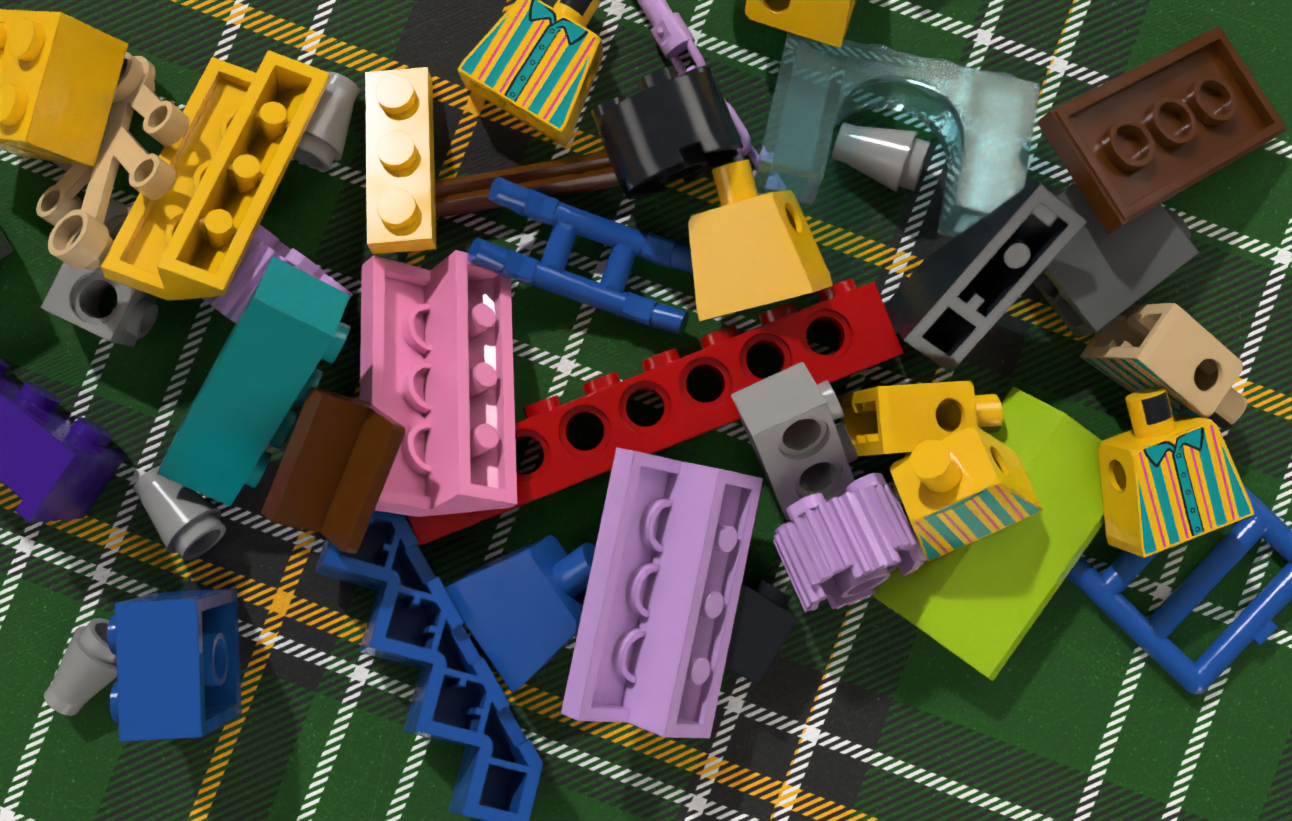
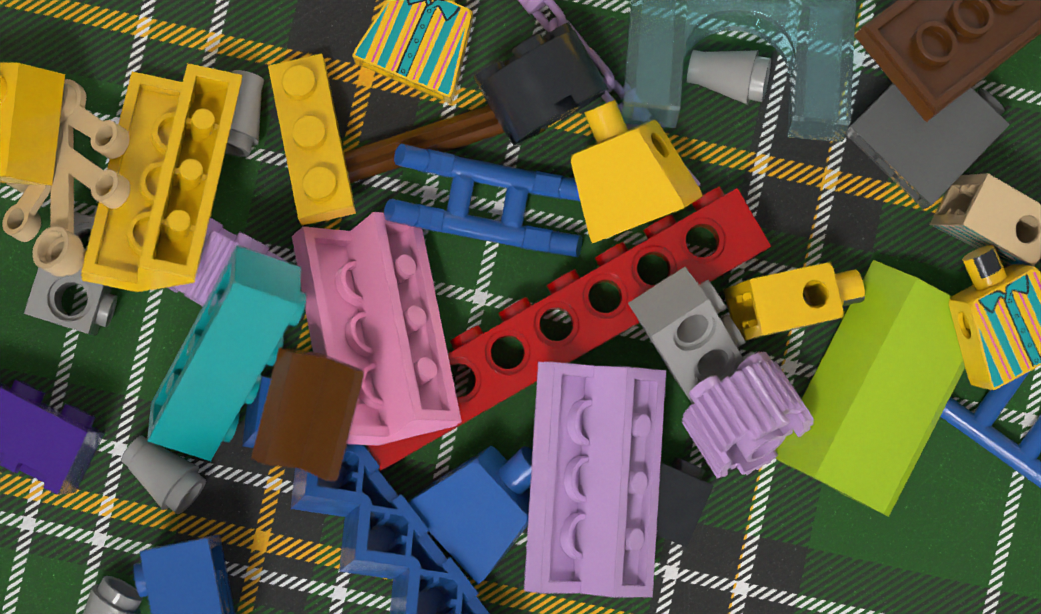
camera: 15 degrees left, 0 degrees up
(962, 490) = (835, 356): yellow torso -> none
(981, 274) = (824, 172): black slope -> none

